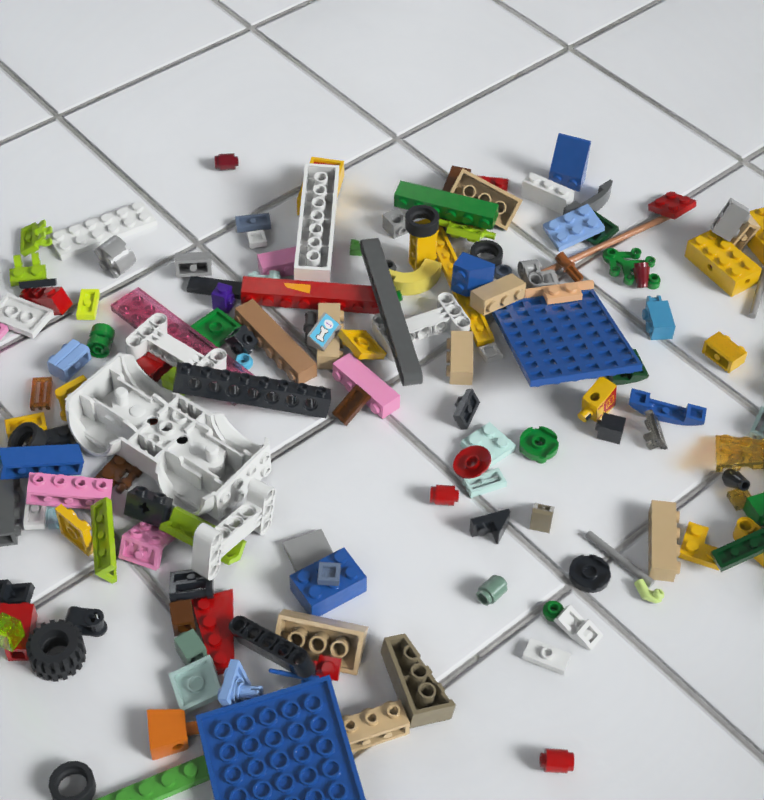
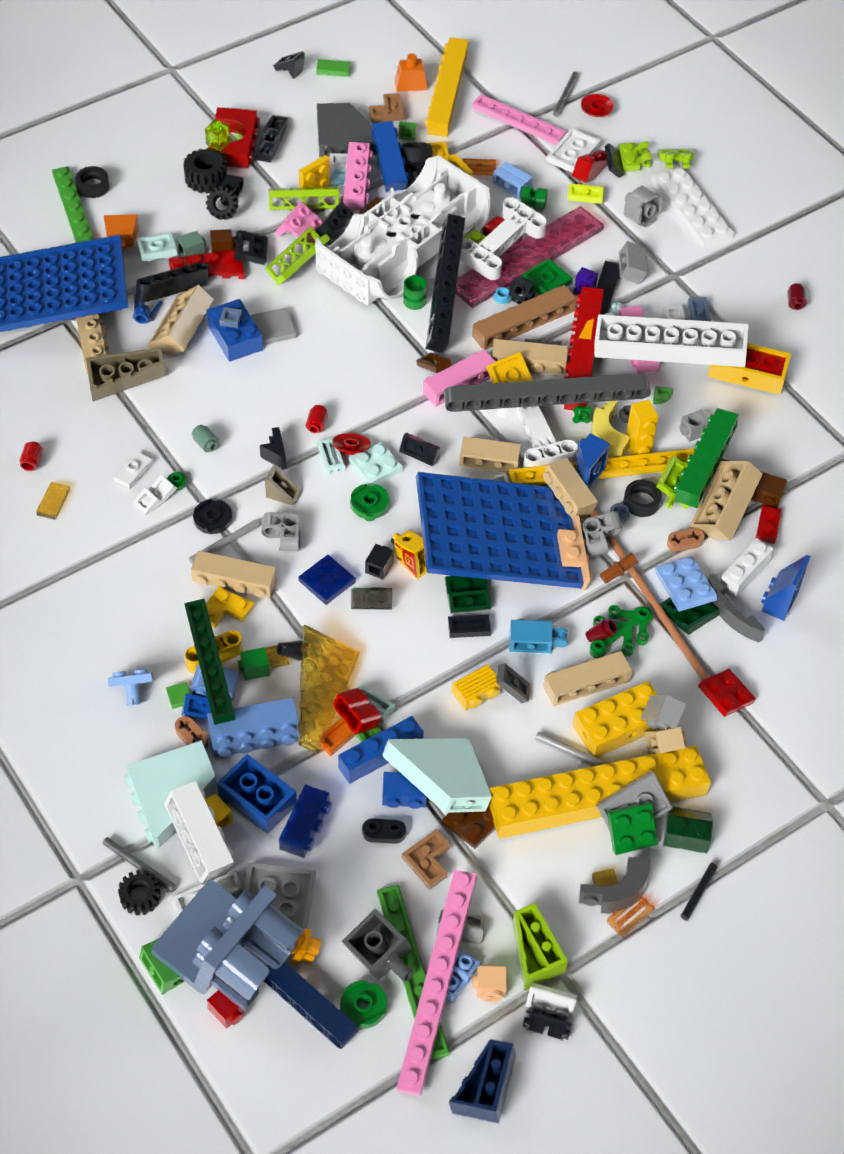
camera: 95 degrees right, 5 degrees up
(113, 626) = (229, 211): none -> black tyre
(213, 543) = (307, 276): white beam -> none
(237, 685) = (139, 260): light blue plate -> none
(253, 425) = (415, 292): none -> green wheel
(323, 332) = (521, 341): slope -> none
(328, 666) = (156, 322): red plate -> none
(422, 230) = (641, 413): black tyre -> none
(518, 232) = (686, 540): none -> nougat beam
(594, 502) = (282, 526): none -> light grey piece
(609, 729) = (53, 500): none -> clear yellow tile
(639, 469) = (327, 579): none -> clear blue plate
(652, 596) = (179, 554): yellowish green arm -> none
(658, 364) = (469, 626): none -> black tile
(669, 413) = (401, 613): blue slope -> none
(689, 284) = (587, 678): none -> tan brick
(717, 324) = (513, 683): none -> dark grey plate

